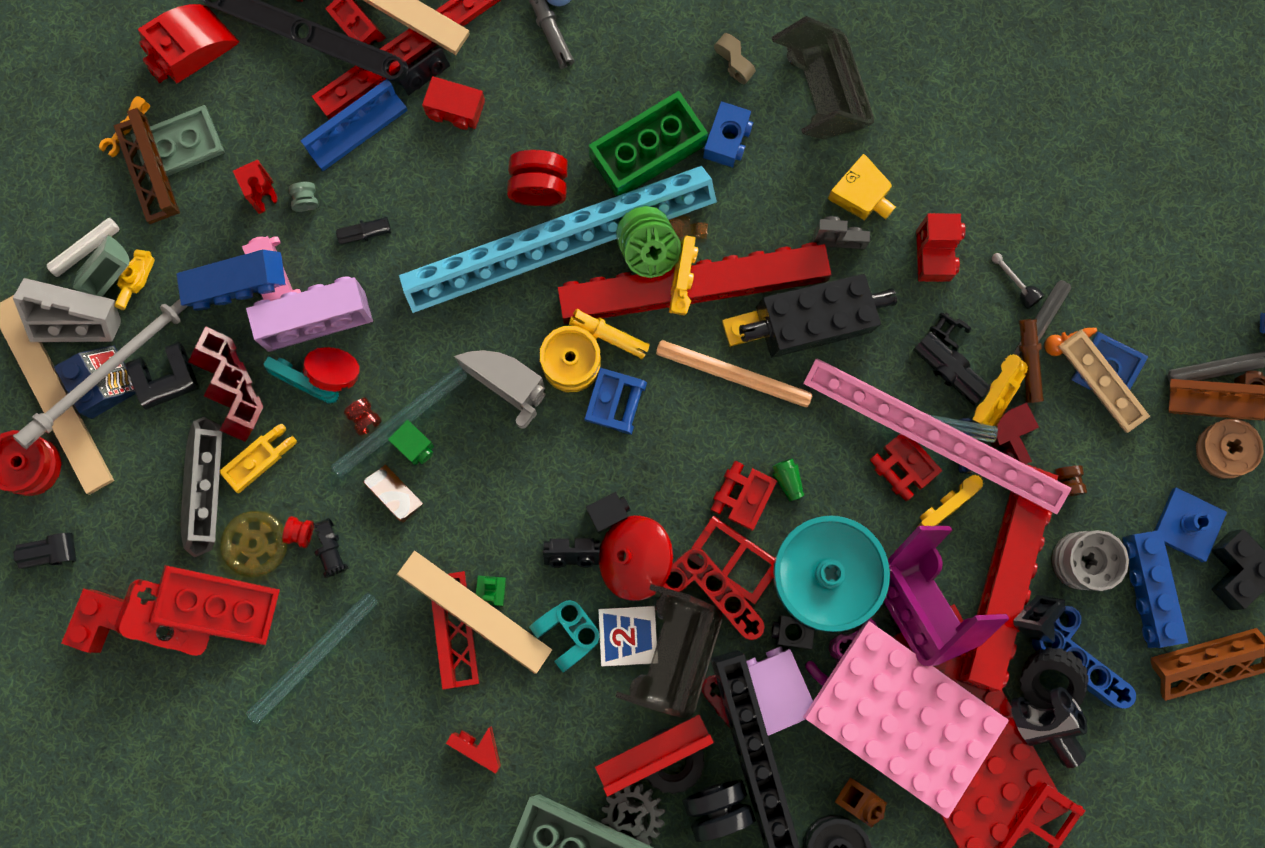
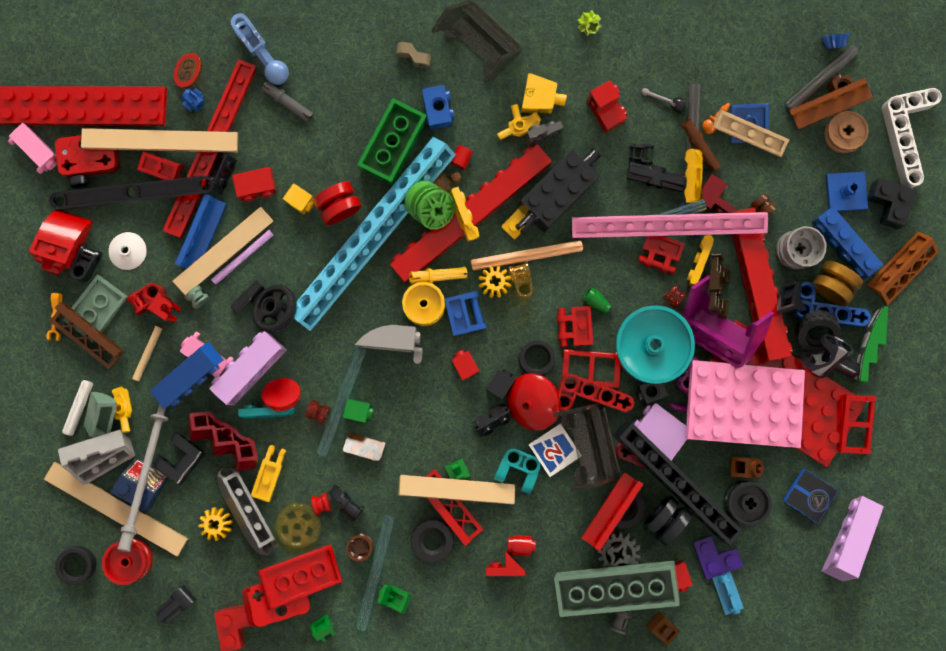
camera: 30 degrees left, 5 degrees up
(147, 474) = (215, 515): none -> yellow gear
(198, 82) = (84, 261): none -> black piece
(204, 230) = (147, 353): none -> tan bar
(204, 688) = (322, 628): none -> green tile
(237, 157) = (142, 298): none -> red piece
(262, 107) = (135, 254): none -> white dish
(311, 613) = (360, 547): none -> reddish brown wheel
(315, 703) = (394, 598): none -> green bracket
(368, 160) = (223, 250): none -> tan tile
(386, 261) = (272, 307): none -> black wheel
(387, 181) = (242, 257): none -> lavender bar
(387, 649) = (432, 555): none -> black tyre
(494, 149) = (299, 199): none -> yellow brick
(514, 731) = (521, 545): none -> red brick
(577, 463) = (465, 364): none -> red brick
(665, 385) = (491, 287): none -> yellow gear
(684, 489) = (537, 343): none -> black tyre
(710, 397) = (520, 277): none -> clear yellow piece
(722, 210) = (462, 157): none -> red beam
(815, 209) = (520, 125): none -> yellow piece
(892, 529) = (674, 296): none -> clear red wheel
(960, 536) = (718, 275): none -> dark brown piece
(970, 130) = (589, 23): none -> lime gear
(1113, 632) = (837, 283): none -> pearl gold wheel
(1124, 731) = (874, 337): none -> green slope

